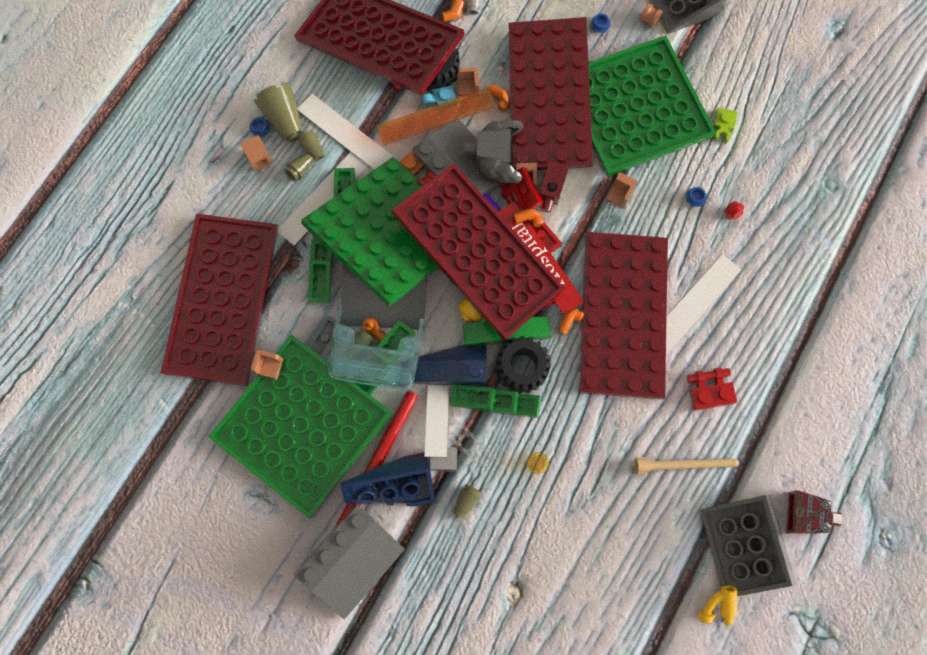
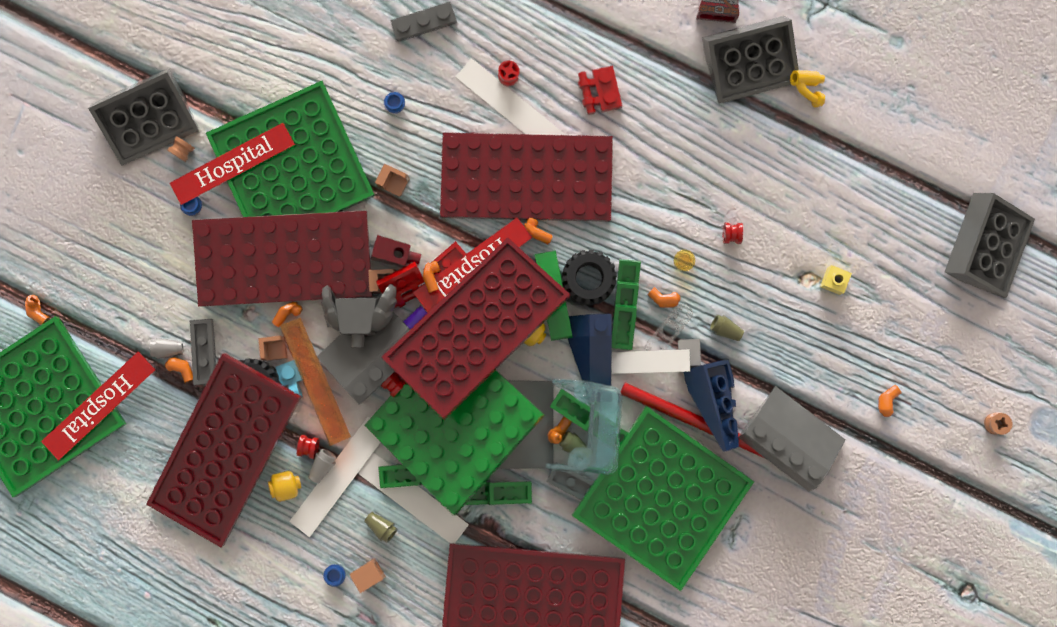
camera: 85 degrees left, 10 degrees up
(267, 364) = (607, 536): nougat panel -> none
(280, 110) = (318, 551): olive cone -> none
(311, 144) = (355, 515): olive cone -> none
(343, 87) = (284, 486): none -> yellow head
(360, 120) = (322, 465): none -> light grey cone
(377, 108) = (307, 446): none -> red wheel
(412, 163) = (370, 405): orange plate -> none
(475, 26) = (202, 350): none -> dark grey plate
(497, 440) = (664, 301): none -> orange arm
(504, 621) = (829, 280): none -> light yellow plate
(564, 513) = (732, 233): none -> red wheel
(638, 56) = (232, 163): none -> red sticker
(644, 465) = (681, 157): tan piece -> none
(725, 123) = (306, 70): lime plate -> none
(731, 298) = (505, 70): none -> red wheel
(734, 210) = (409, 63): red plate -> none
(775, 227) = (423, 21): none -> dark grey plate

